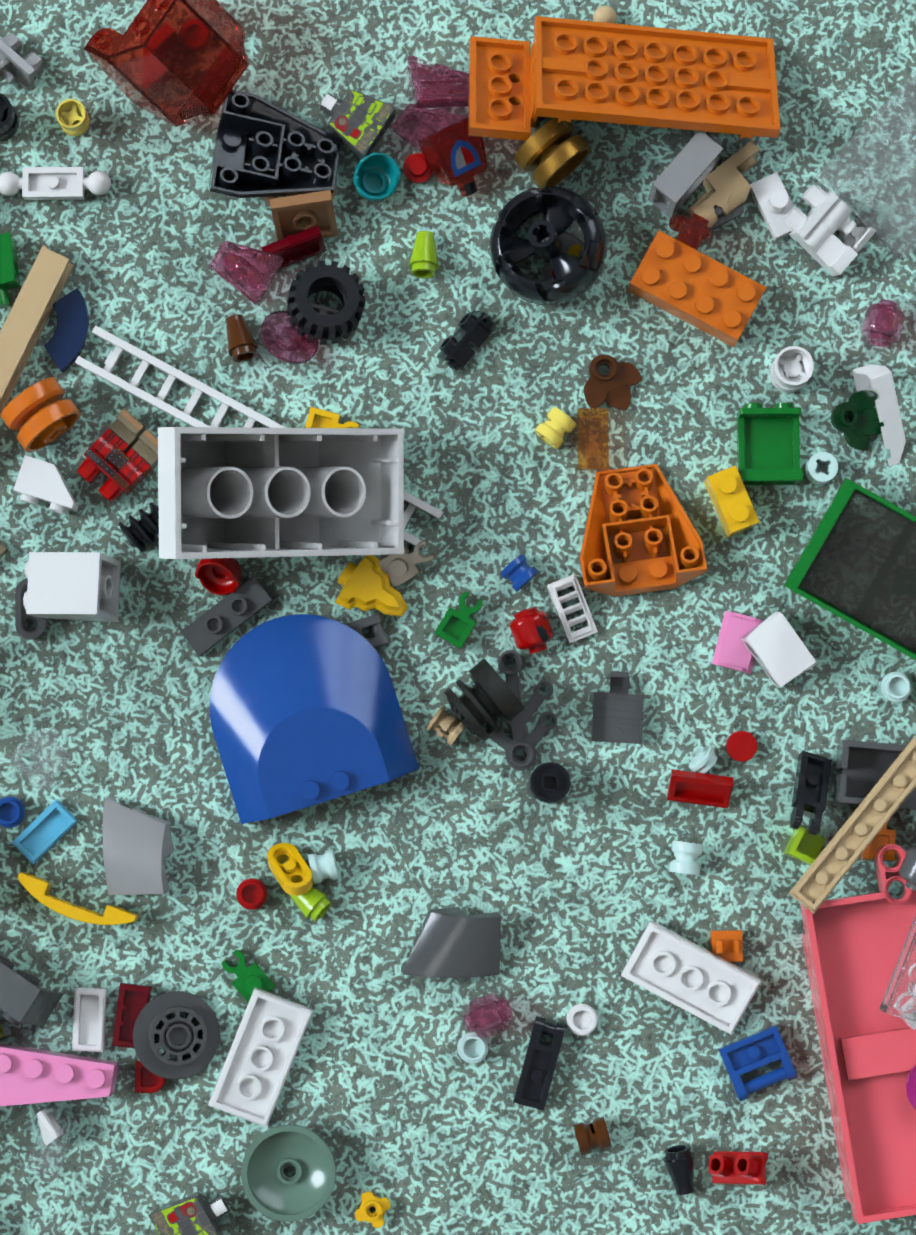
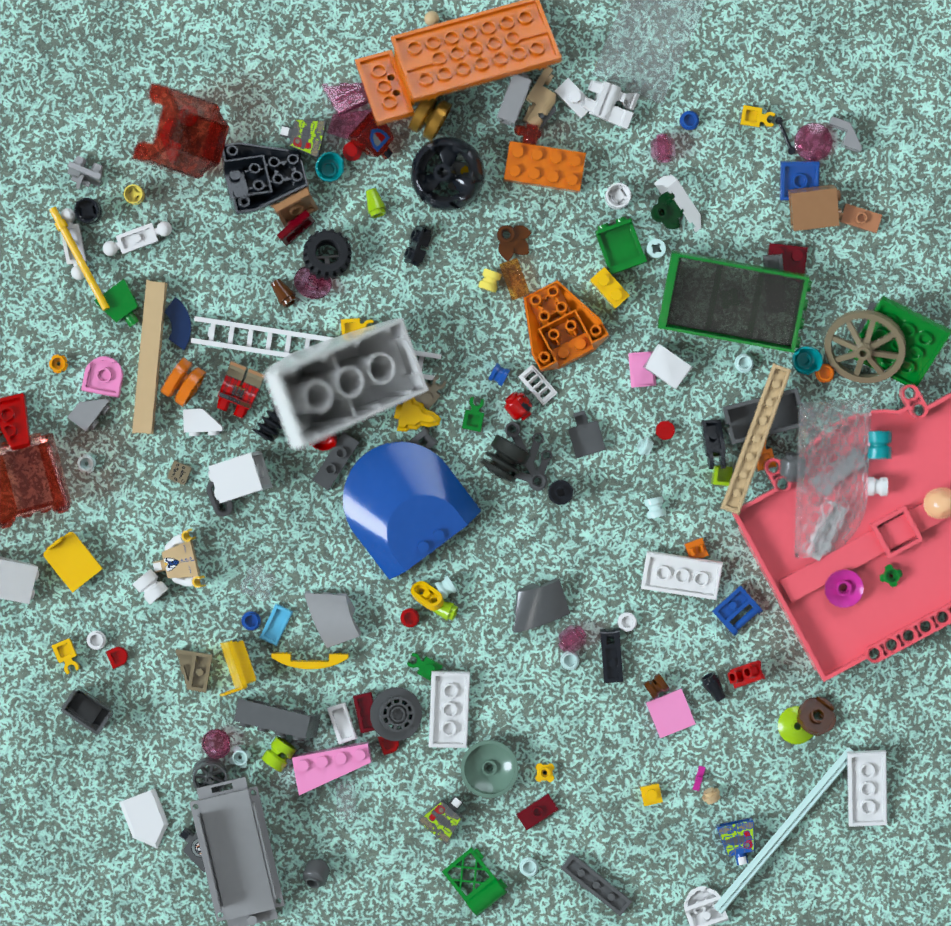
camera: 20 degrees left, 5 degrees up
(49, 1126) = (342, 792): white slope -> none
(246, 268) = (272, 250): clear pink wing -> none
(446, 725) = (487, 480): tan bush -> none
(599, 1186) = (670, 713): none -> bright pink tile
(700, 788) = (649, 464): red tile -> none

